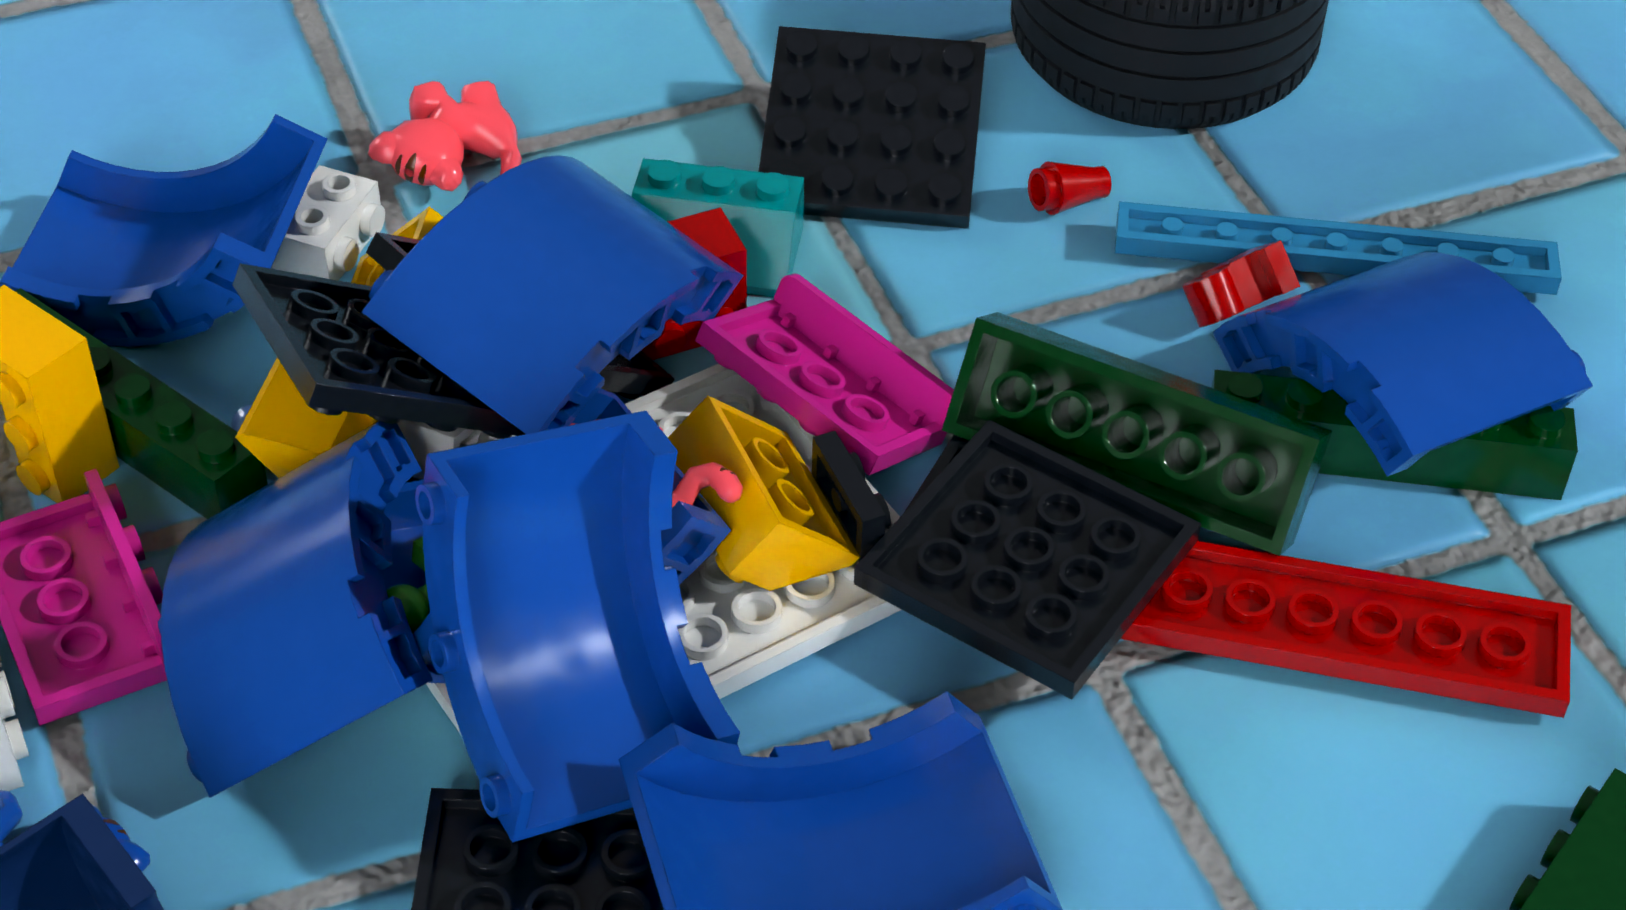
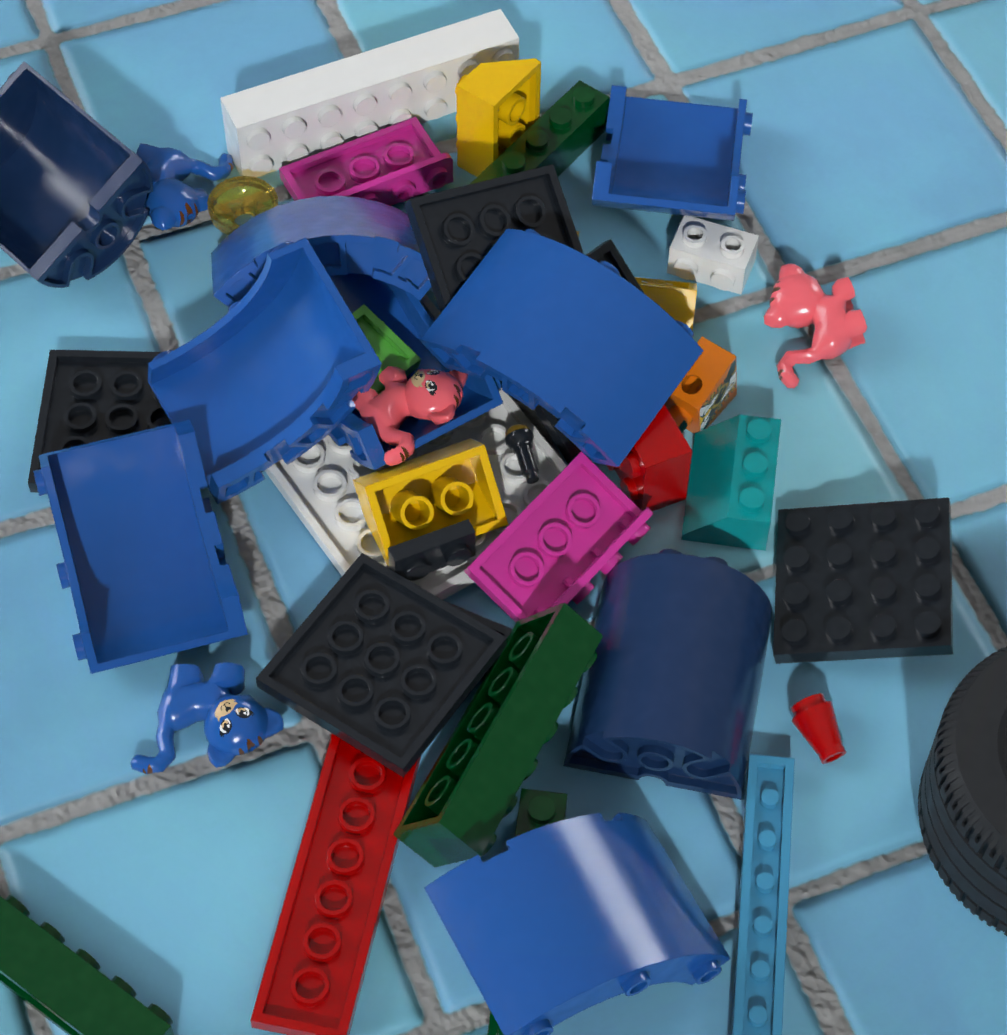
camera: 90 degrees right, 10 degrees up
(111, 736) = (239, 197): none -> clear yellow piece
(664, 409) = (520, 440): none -> black piece
(964, 259) = (673, 674): none -> dark blue cylinder
(1118, 739) = (231, 721): none -> blue animal
(1240, 283) = (697, 839): red leg -> none

